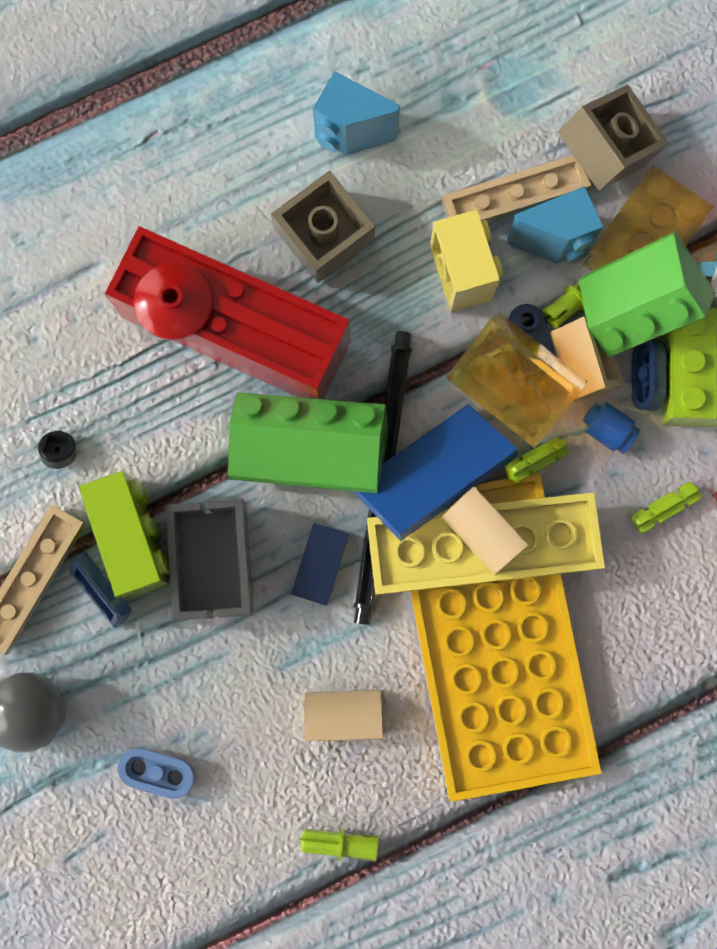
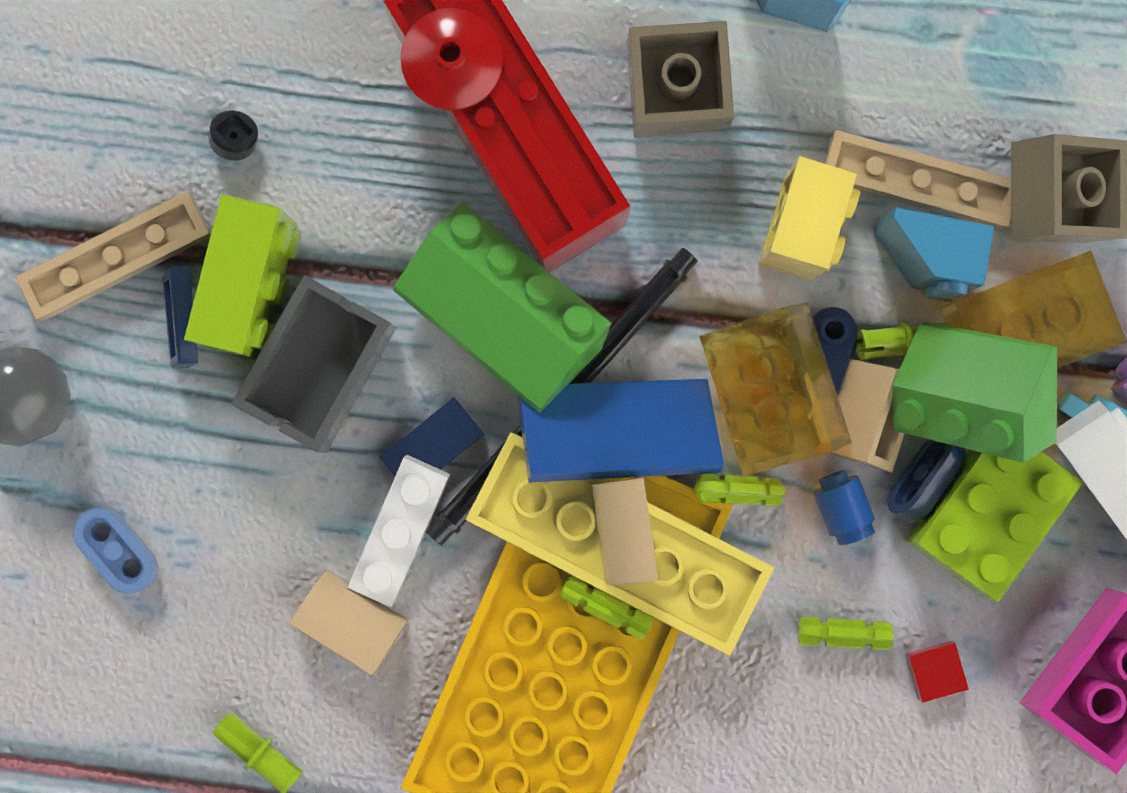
camera: 35 degrees right, 5 degrees up
(335, 633) = (398, 530): none -> white plate
(504, 590) = (606, 607): none -> lime axle

